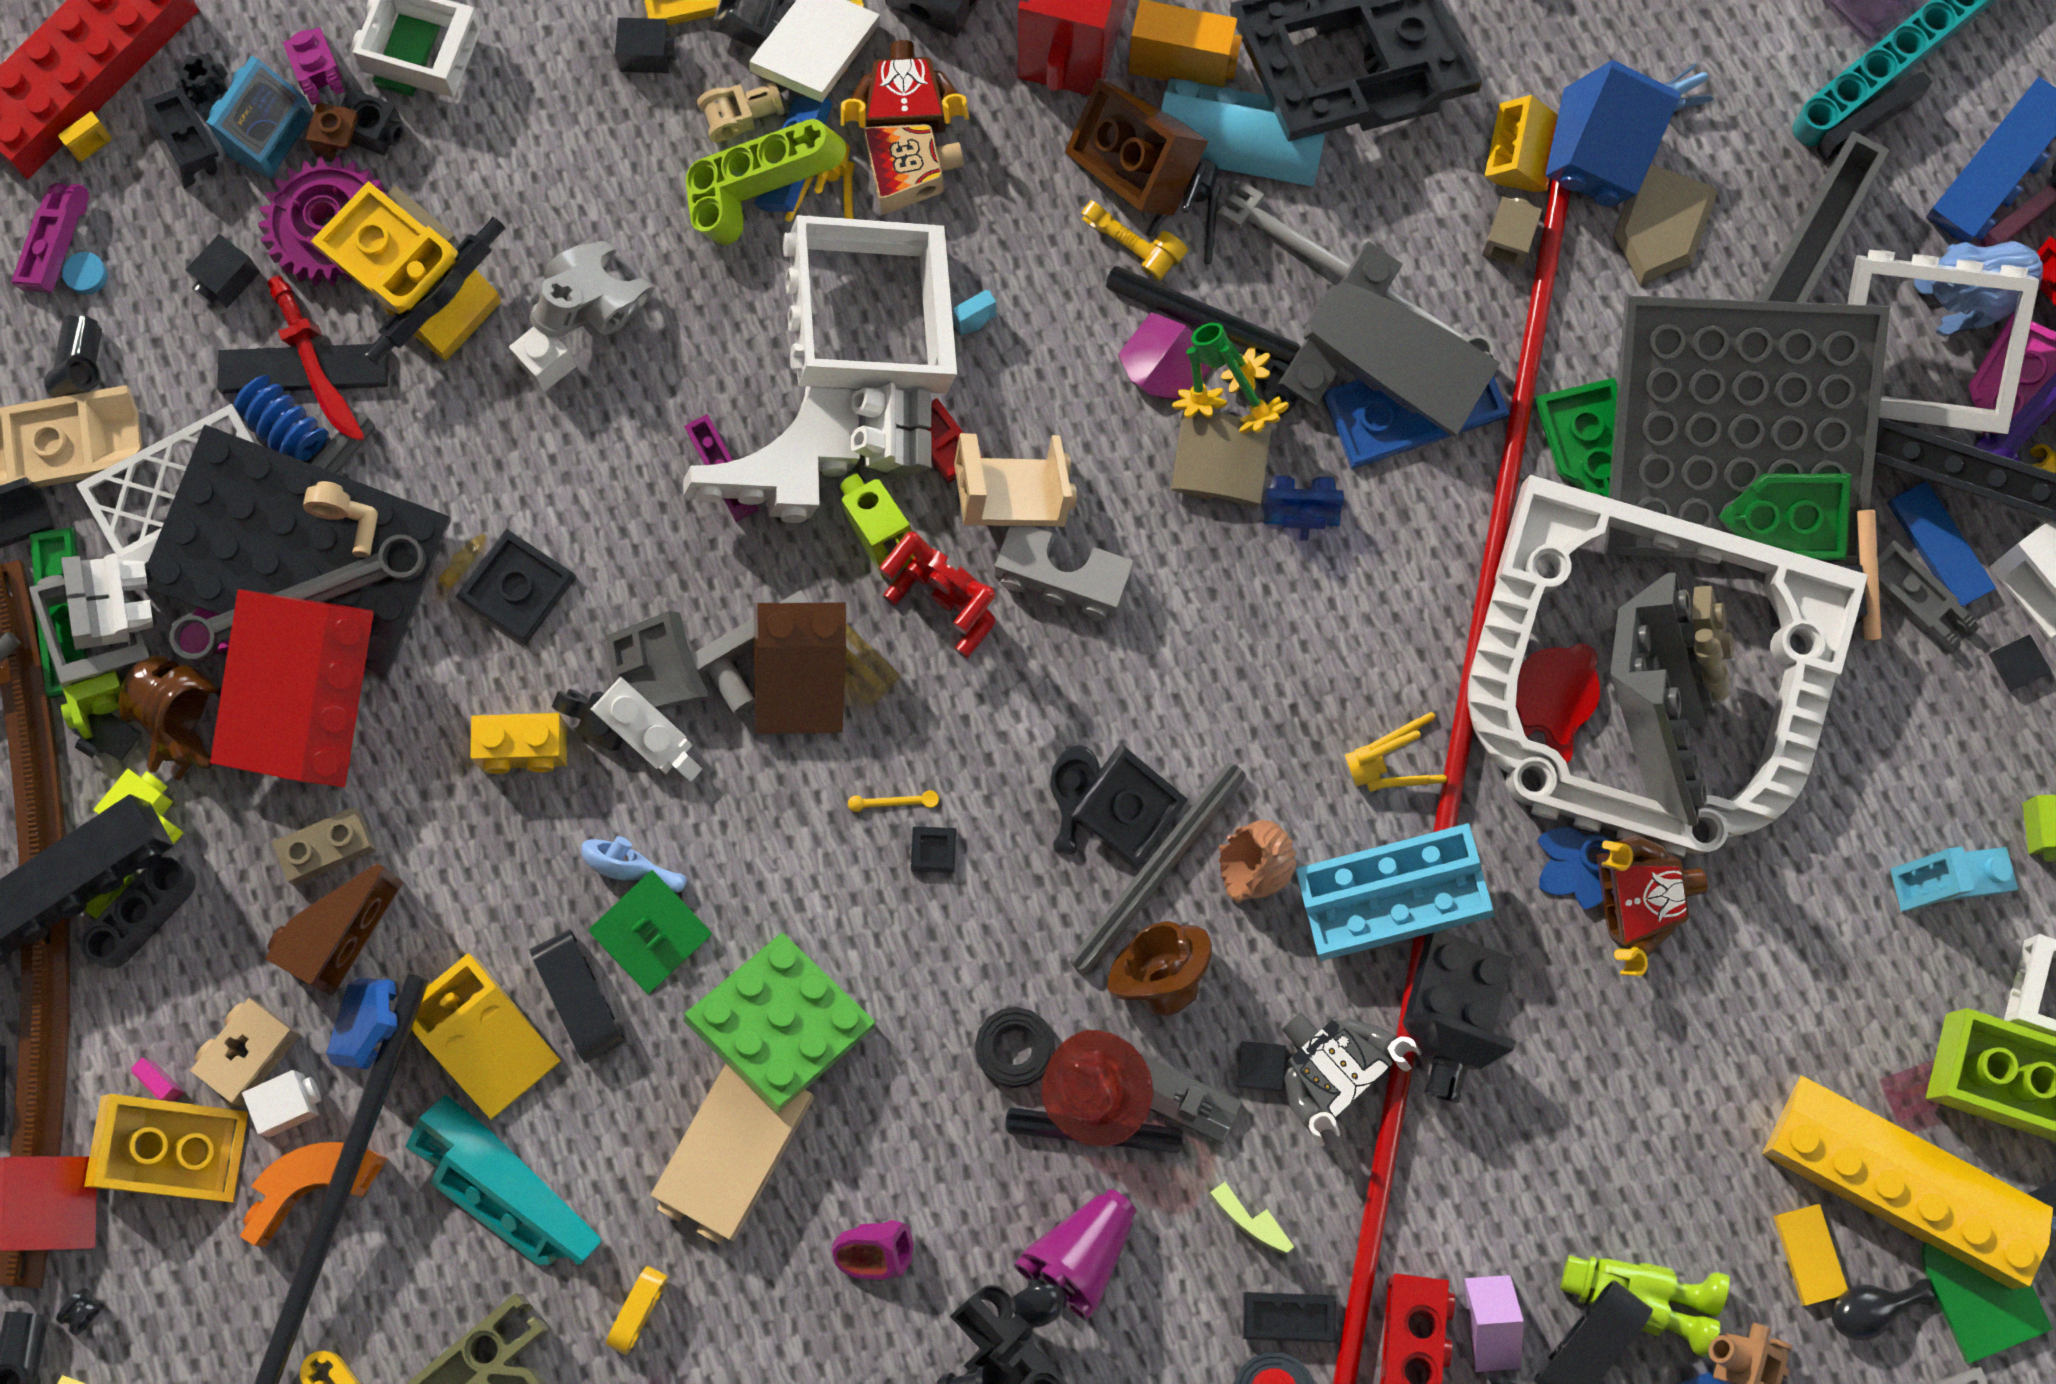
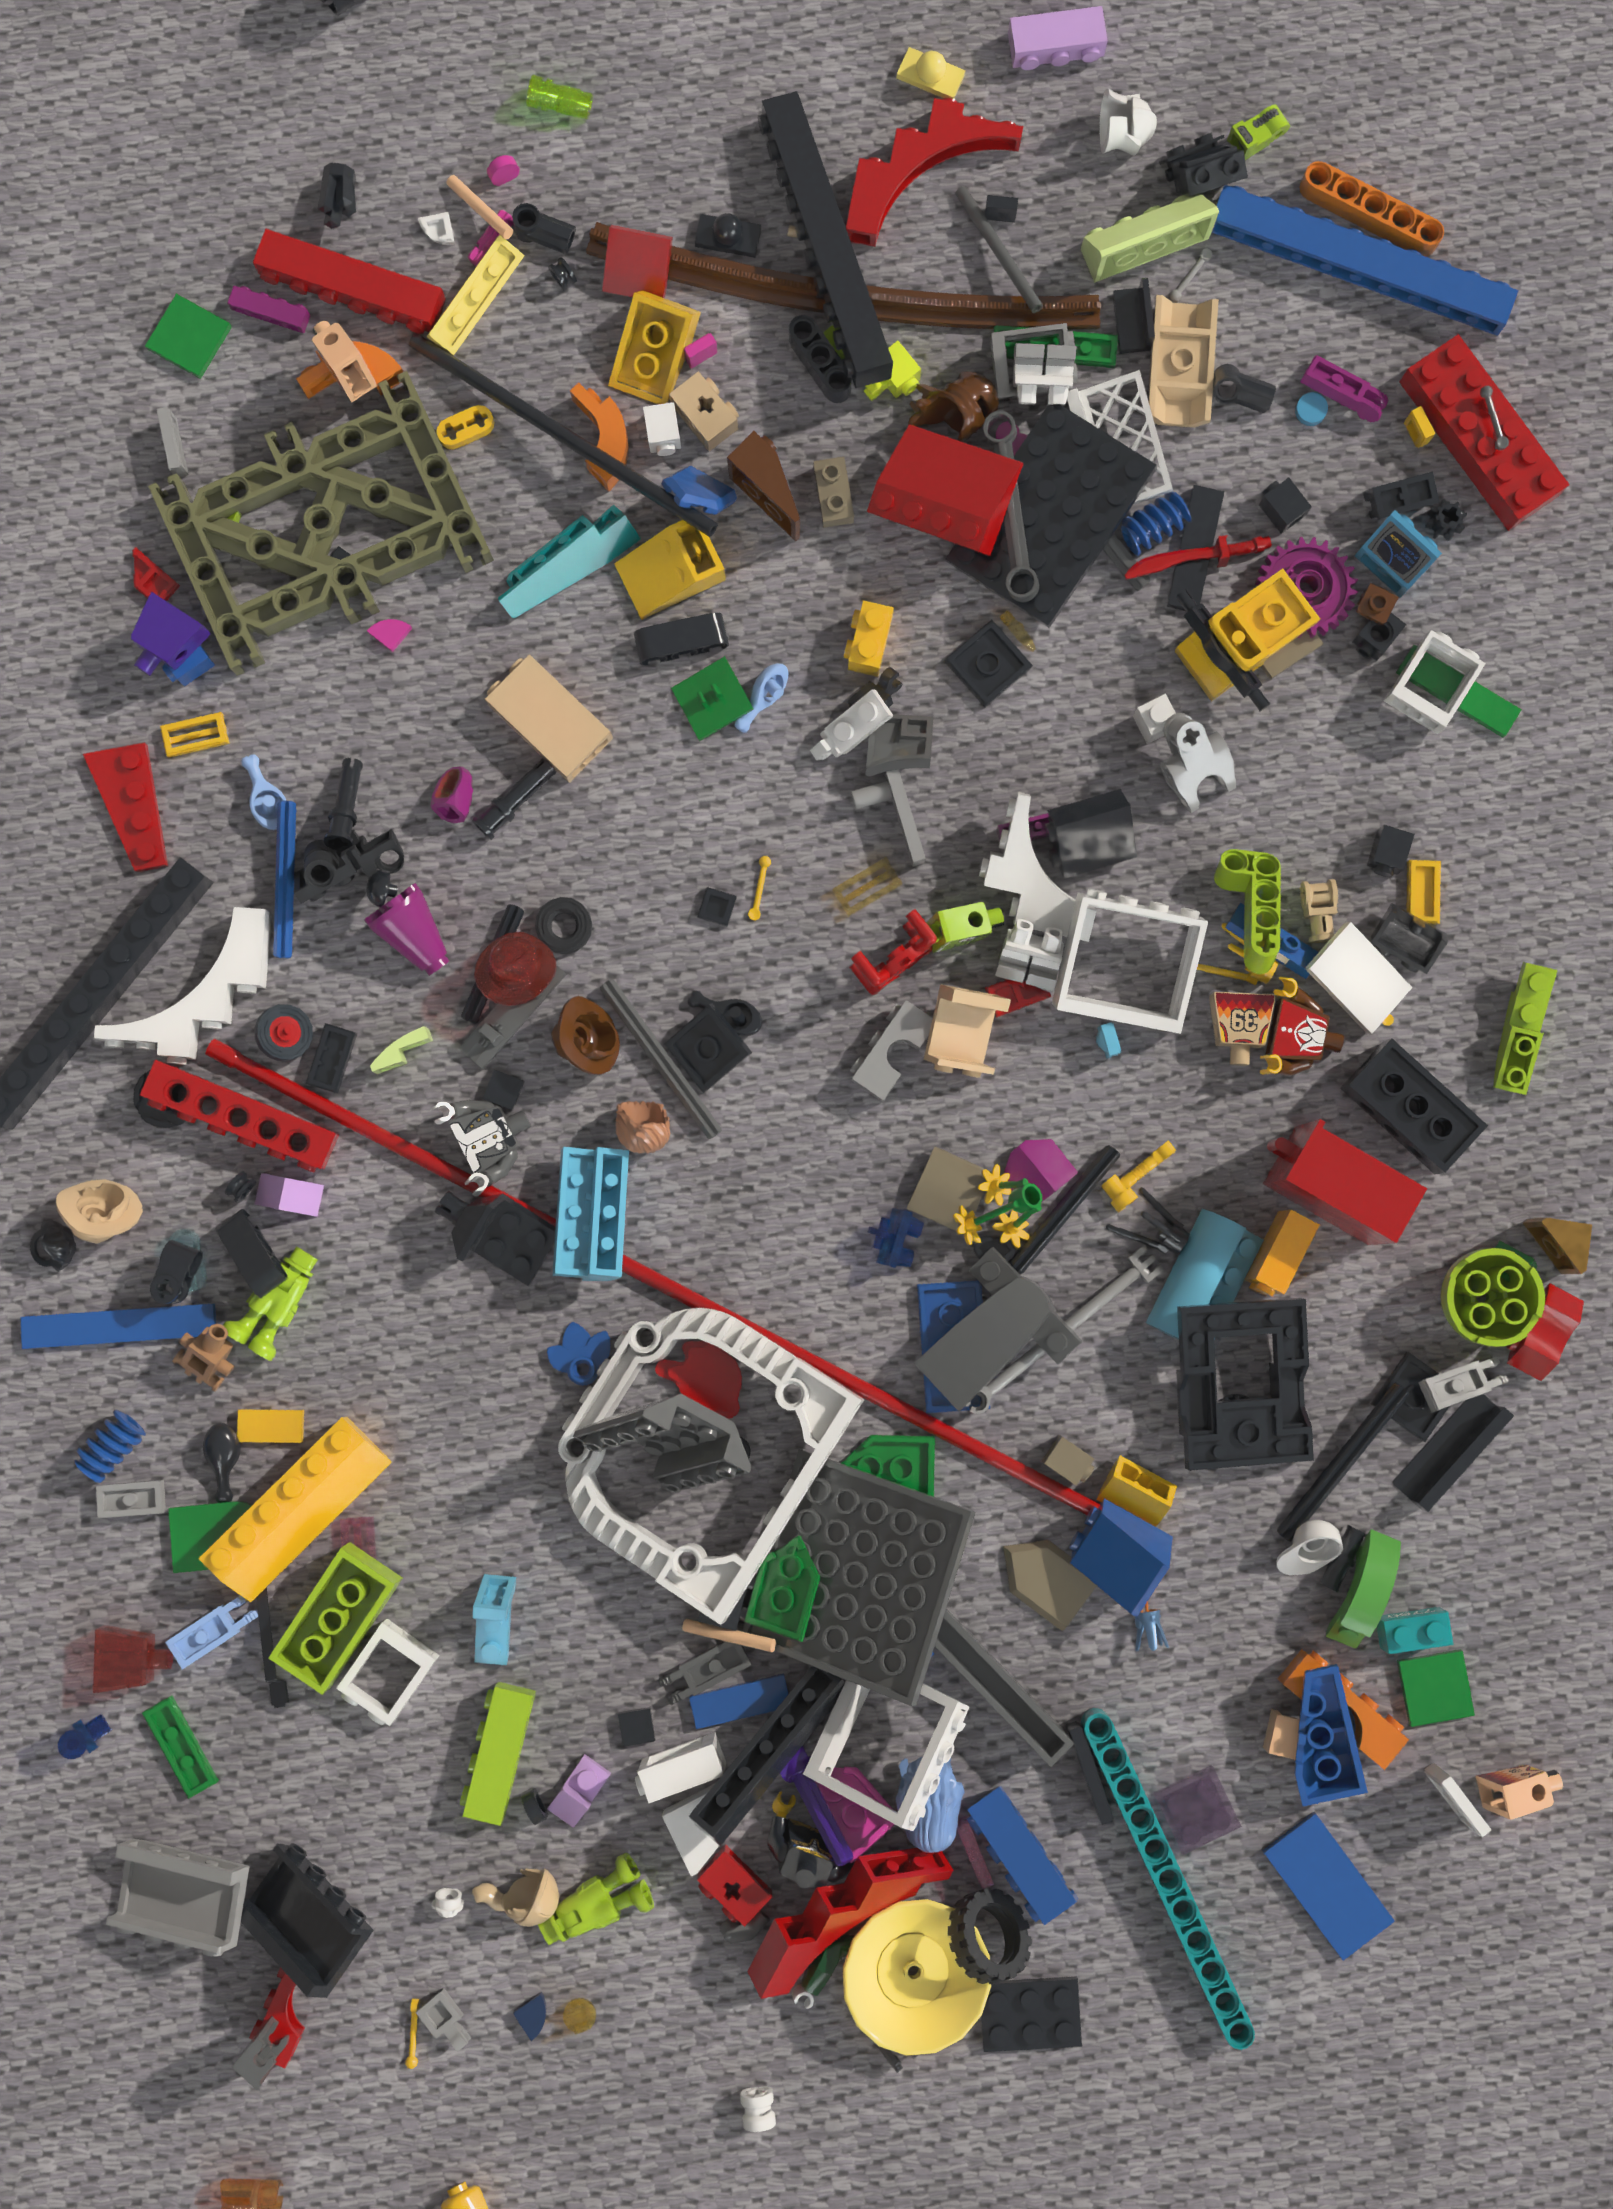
camera: 105 degrees right, 10 degrees up
(88, 25) = (1502, 441): none -> dark grey hinge
(91, 696) = (982, 358): lime bracket -> none
(109, 736) = (957, 359): black piece -> none
(313, 63) = (1434, 603): magenta hinge -> none
(330, 502) = (1074, 539): tan plate -> none
(636, 1310) = (460, 630): yellow beam -> none
(715, 392) = (1091, 833): none -> black brick
(779, 1022) = (622, 768): bright green plate -> none
(799, 667) = (871, 843): reddish brown slope -> none
(874, 1174) = (504, 807): none -> black pin
(1136, 148) = (1204, 1193): reddish brown slope -> none
(1368, 761) = (692, 1228): yellow plant -> none
(1644, 897) = (539, 1389): torso -> none
(1711, 642) = (699, 1491): dark tan plate -> none

